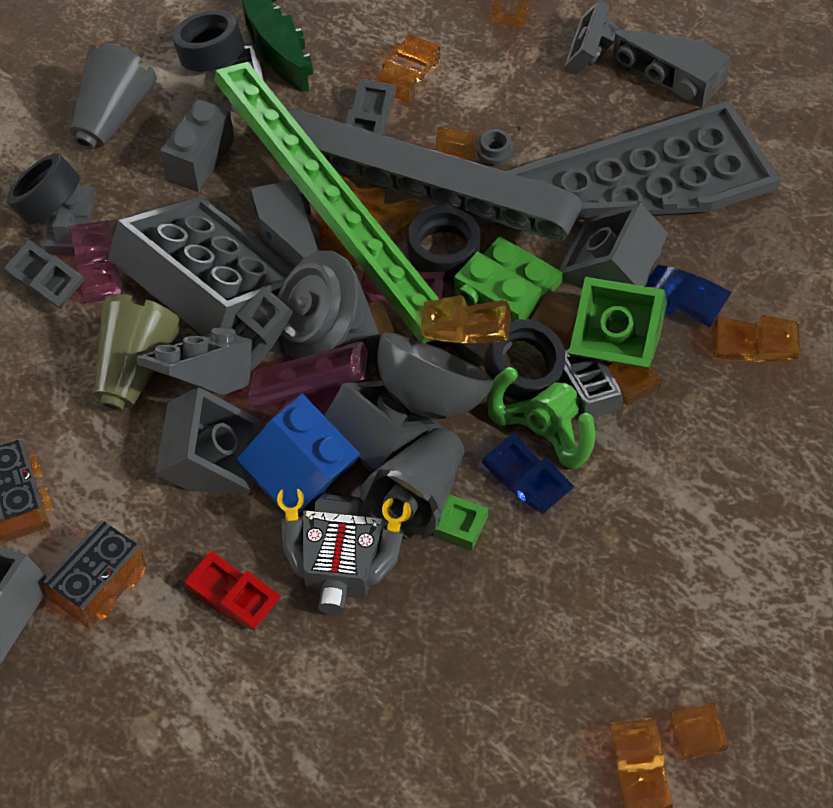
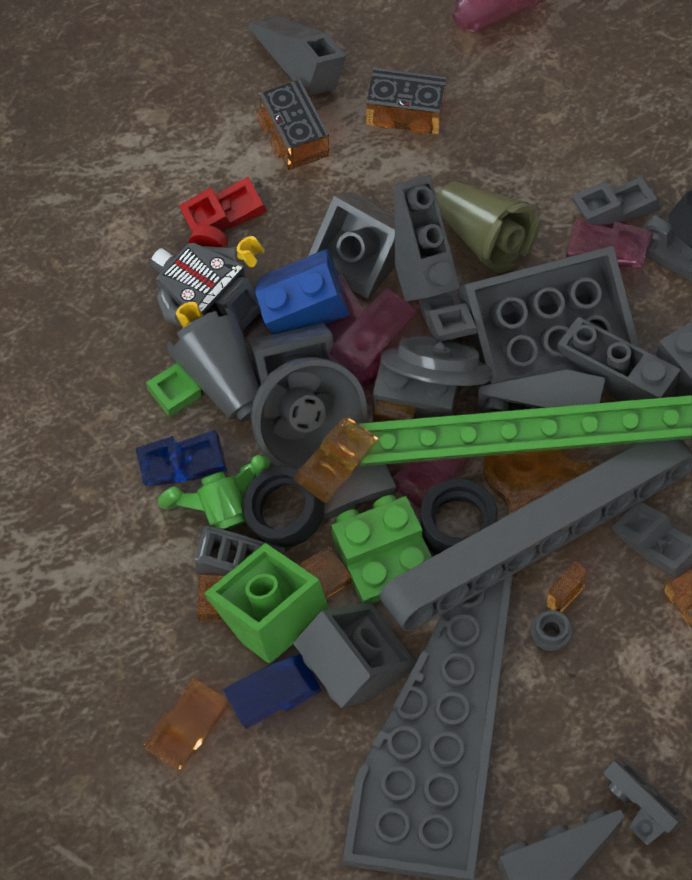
camera: 120 degrees right, 5 degrees up
(228, 186) = (627, 369): none -> dark grey slope
(283, 575) = (208, 236): none -> red tile

